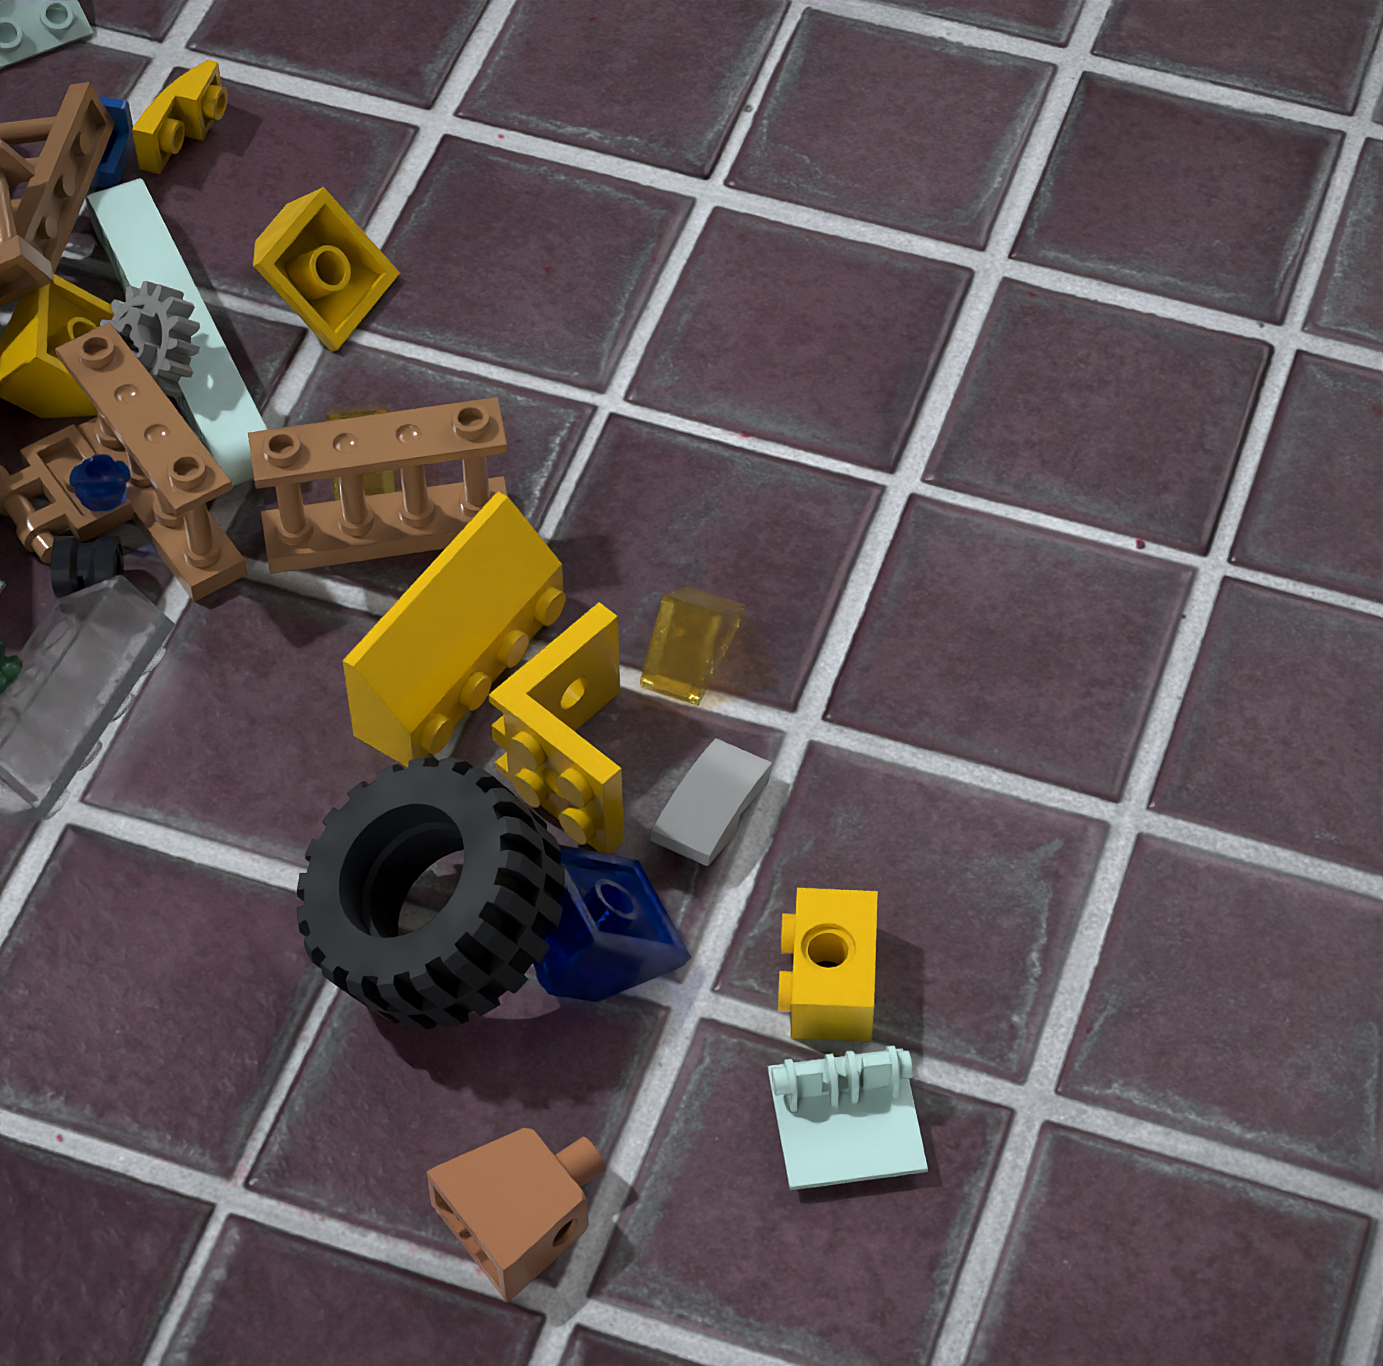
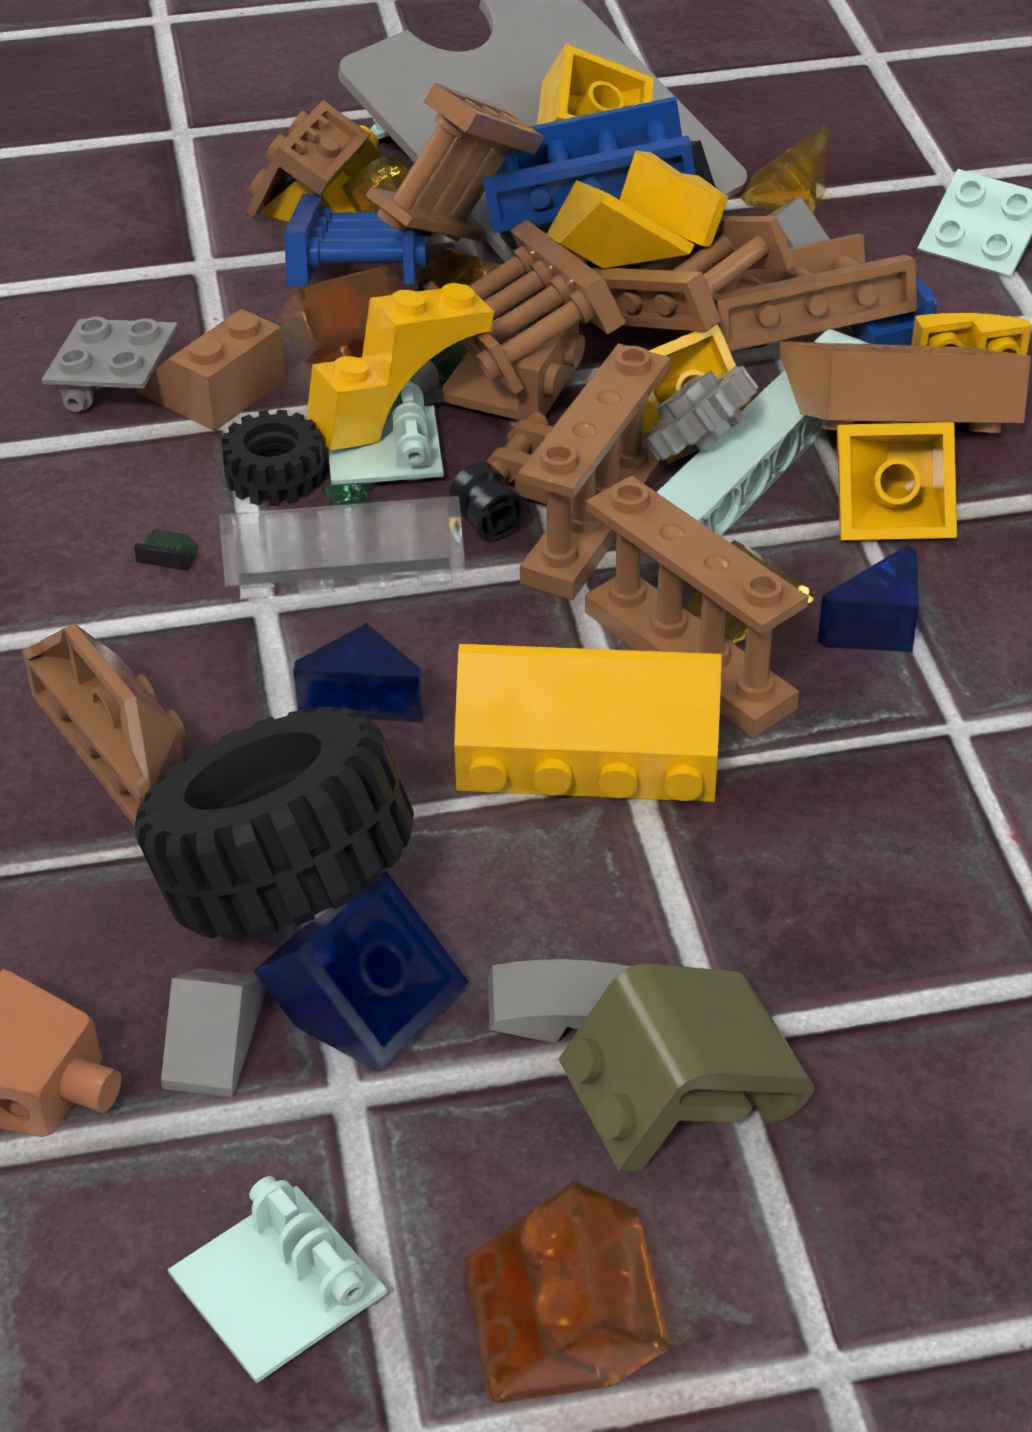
camera: 60 degrees right, 10 degrees down
(159, 986) = (105, 714): none -> medium nougat wedge
(215, 188) = (907, 384): none -> medium nougat slope
(251, 766) = (362, 675): none -> clear blue slope
(459, 358) = (874, 607): none -> clear blue slope
(538, 726) = (531, 822): yellow bracket -> none
(566, 1055) = (209, 1030): none -> light grey slope
(689, 642) = (738, 897): clear yellow slope -> none
(834, 761) = (679, 1049): none -> olive piece
(837, 999) = (417, 1210): yellow brick -> none
(989, 939) = (565, 1298): none -> clear orange slope

